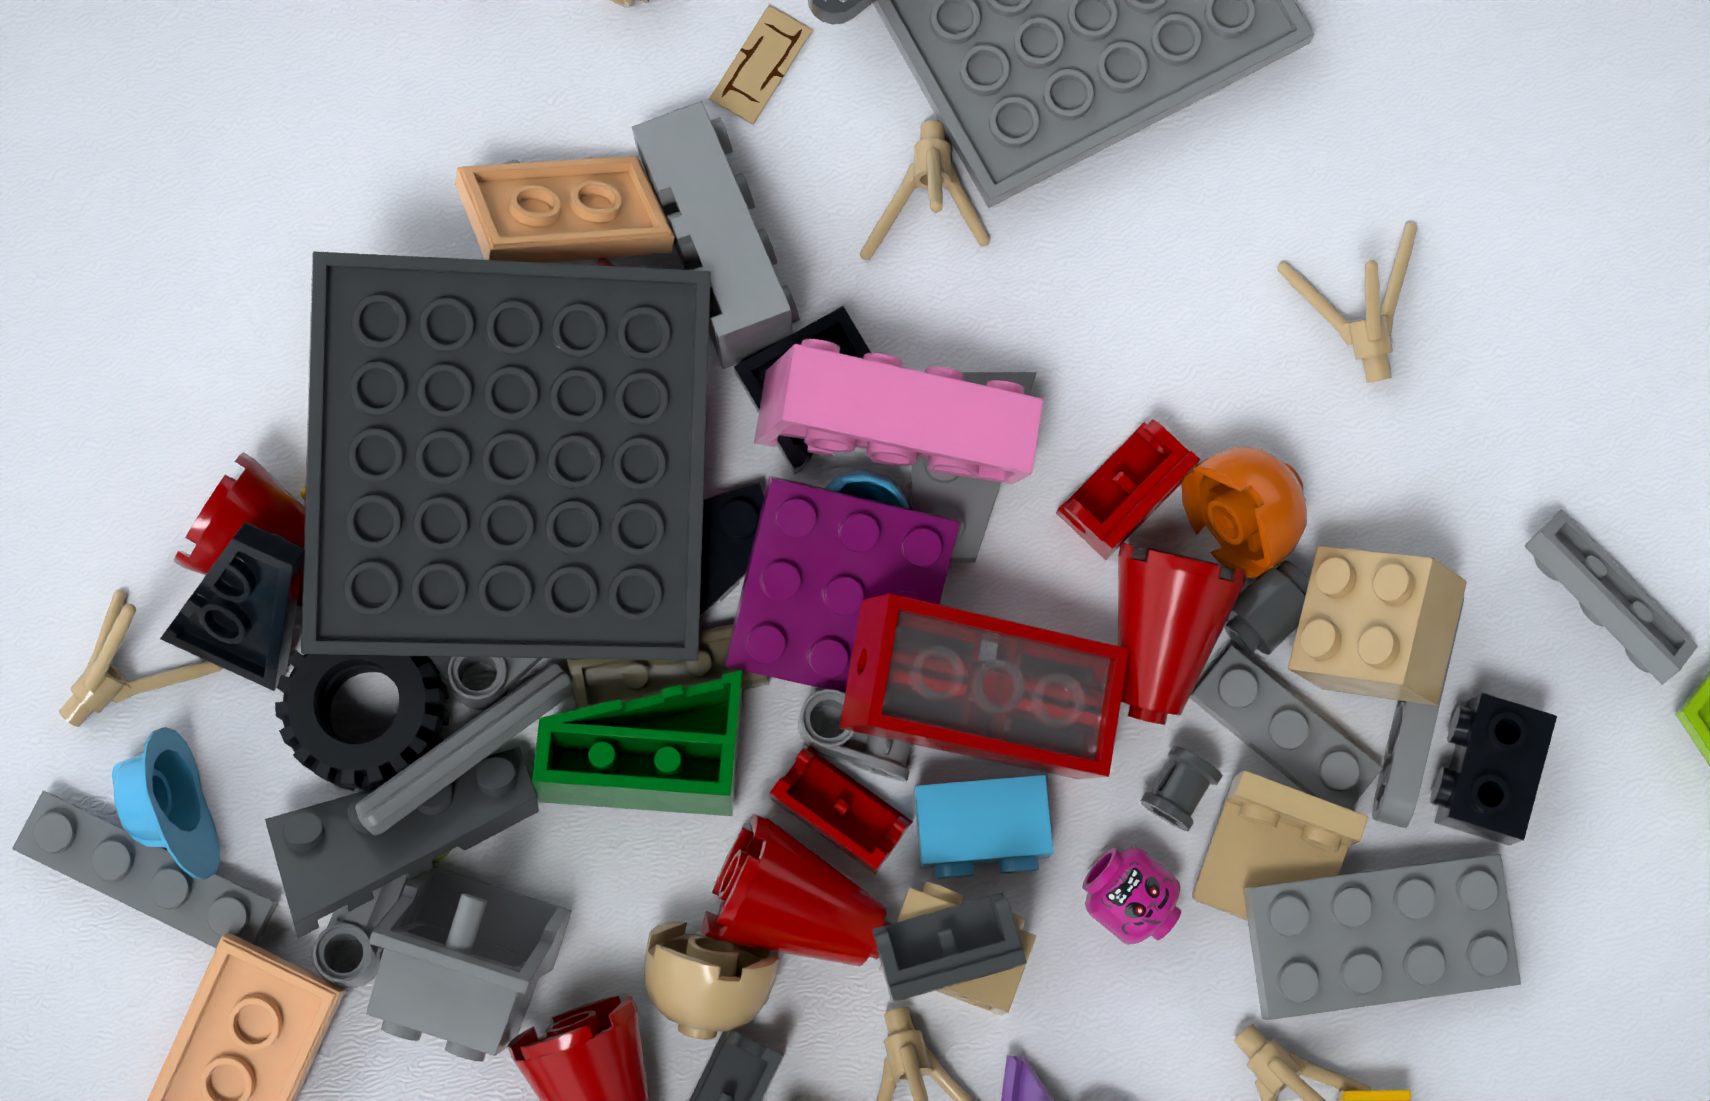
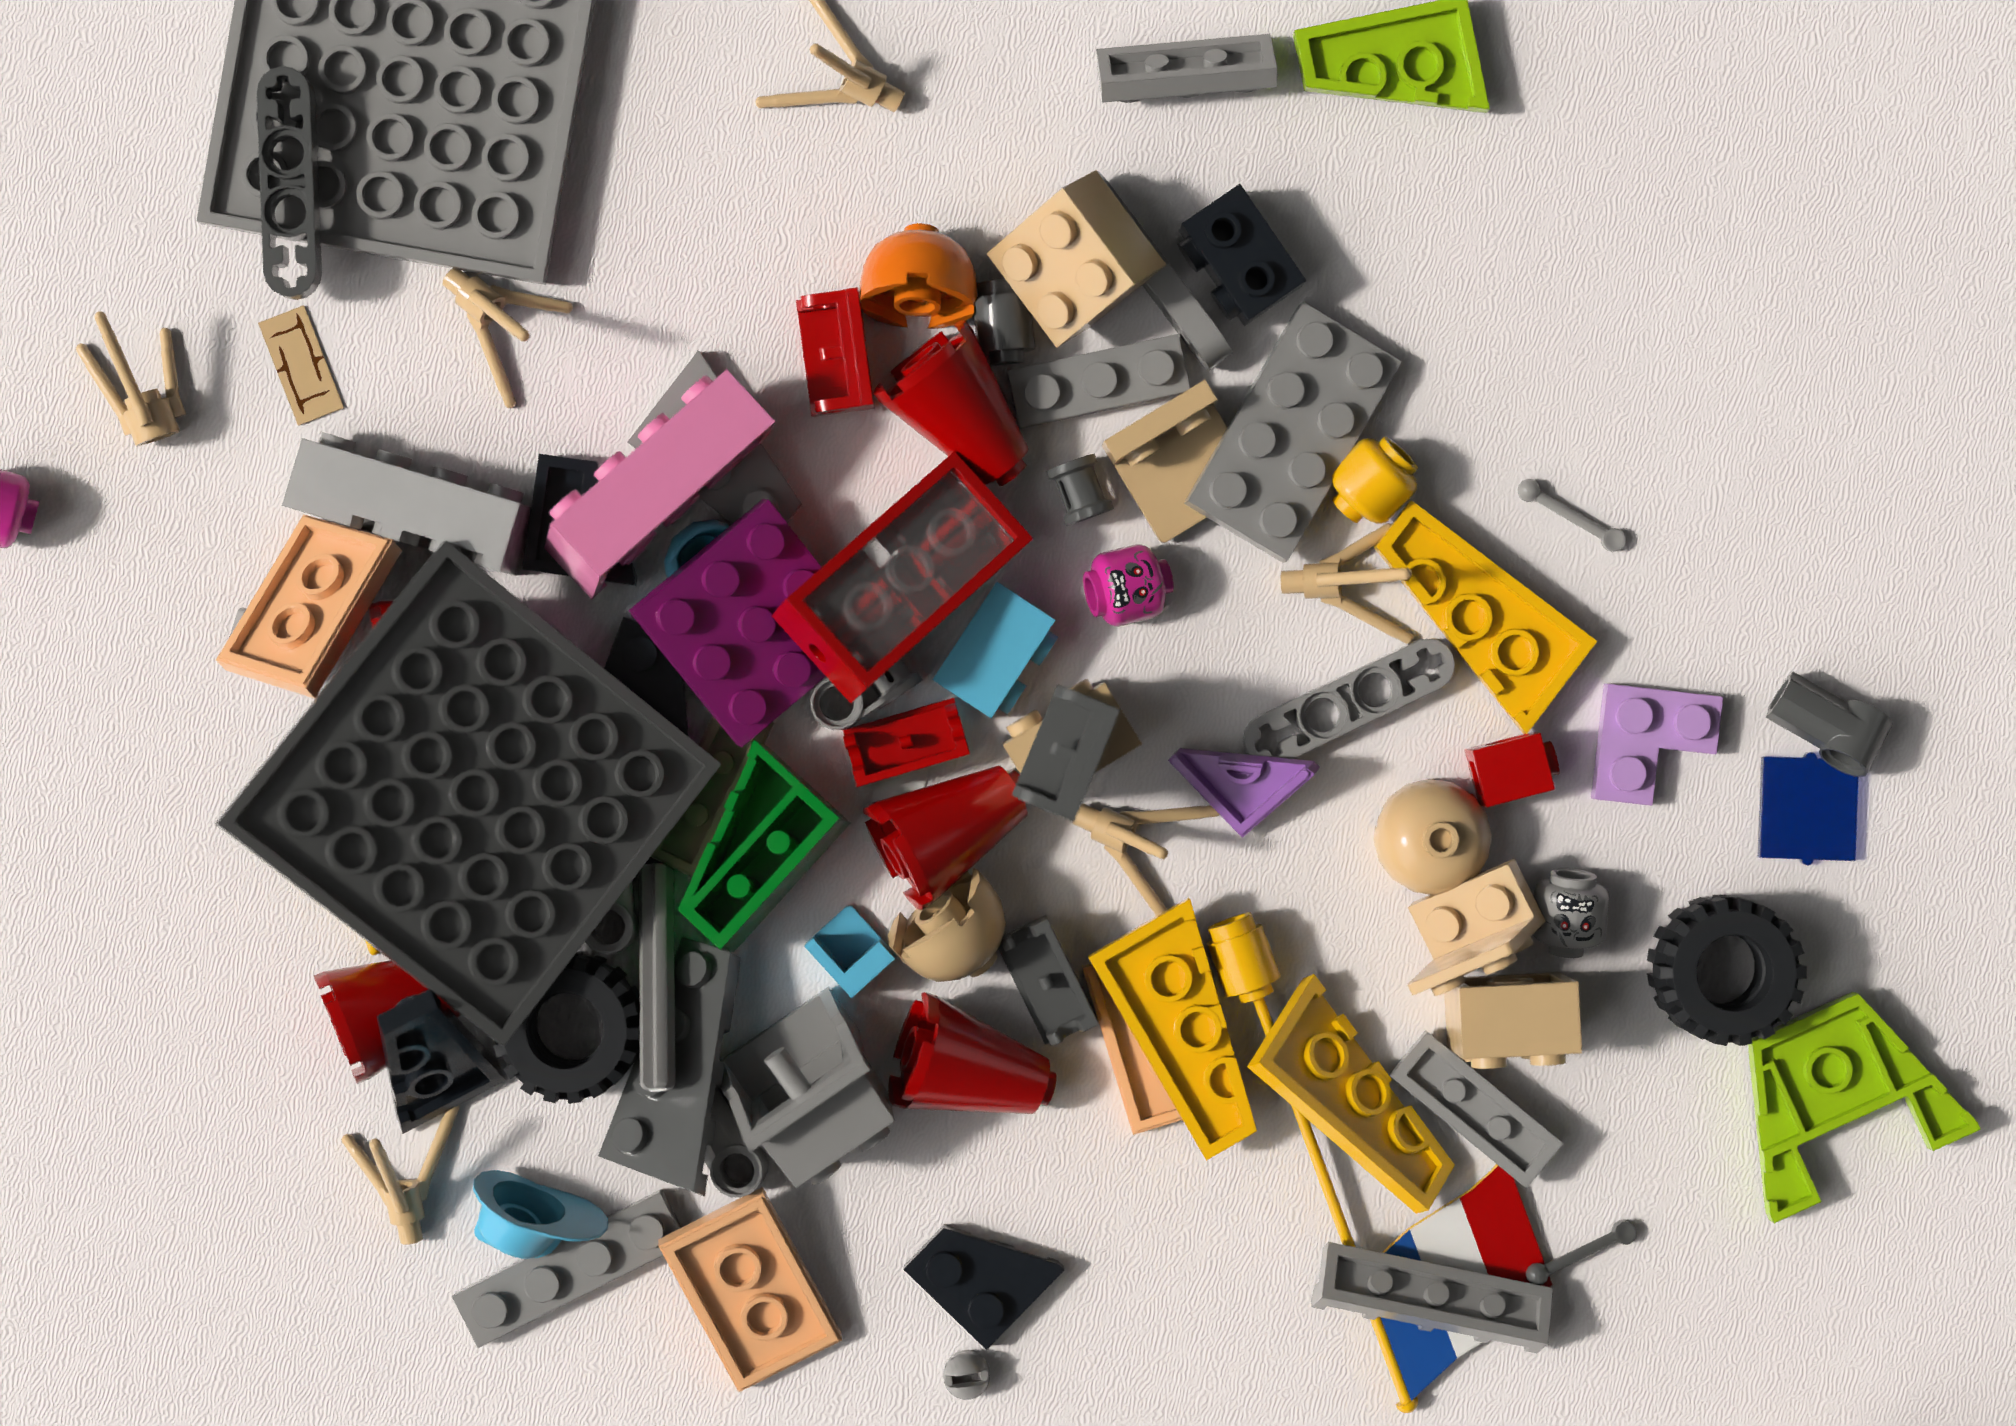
camera: 45 degrees left, 10 degrees up
(618, 903) = (850, 950): none -> medium azure panel
(1399, 1042) = (1374, 480): none -> yellow head

